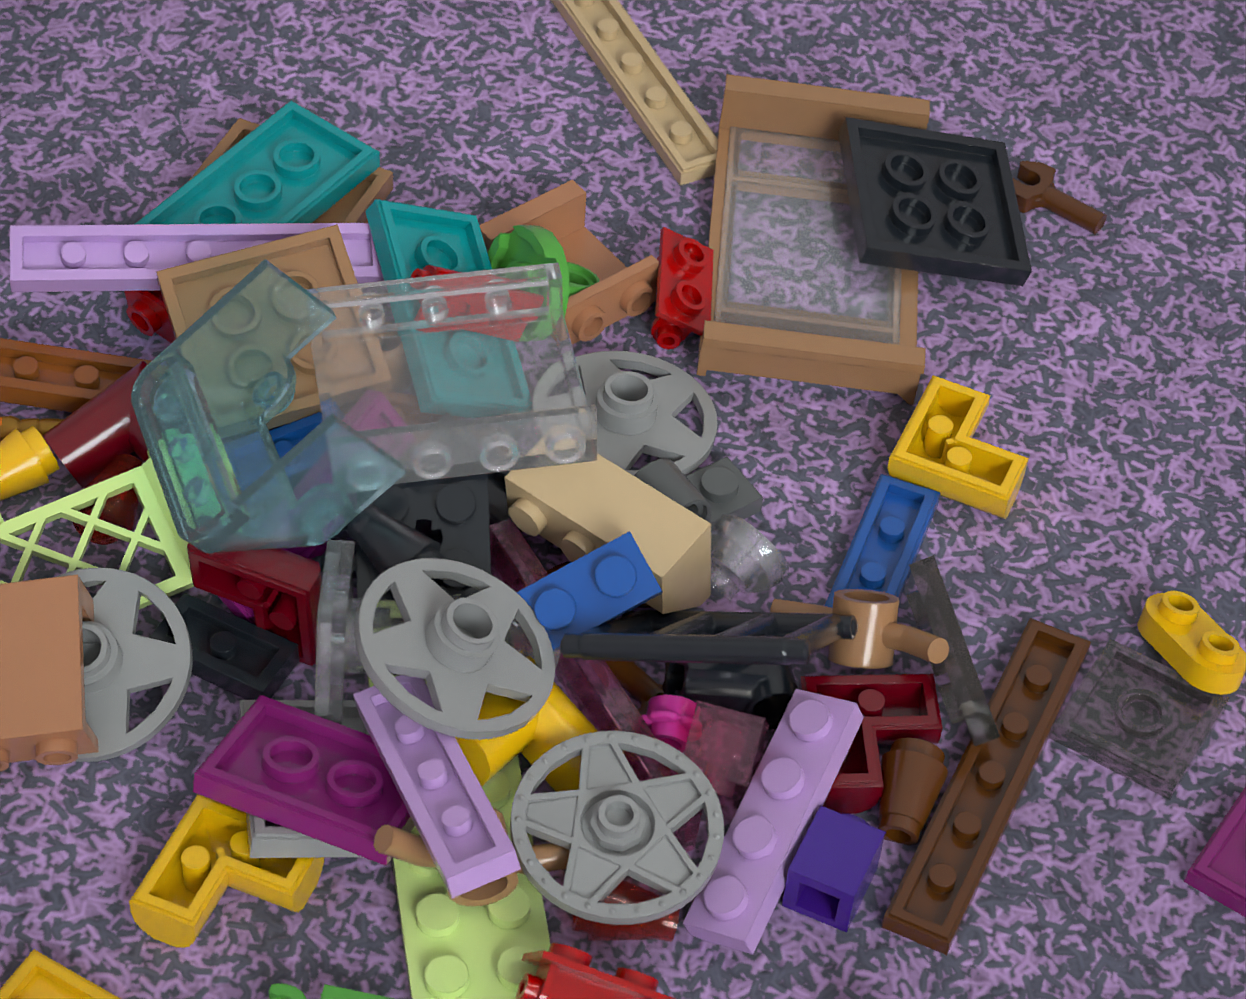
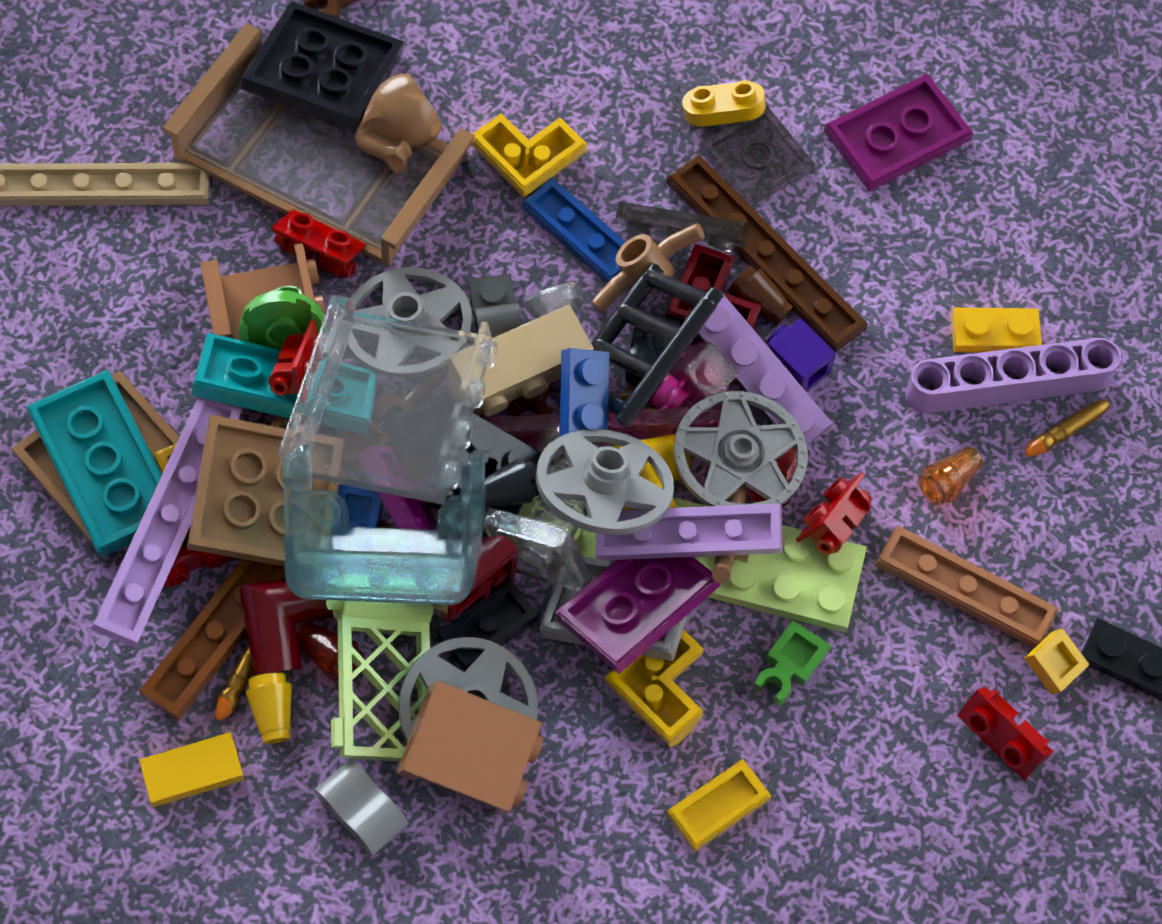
camera: 65 degrees left, 15 degrees up
(900, 289) = (396, 122): none -> medium nougat piece

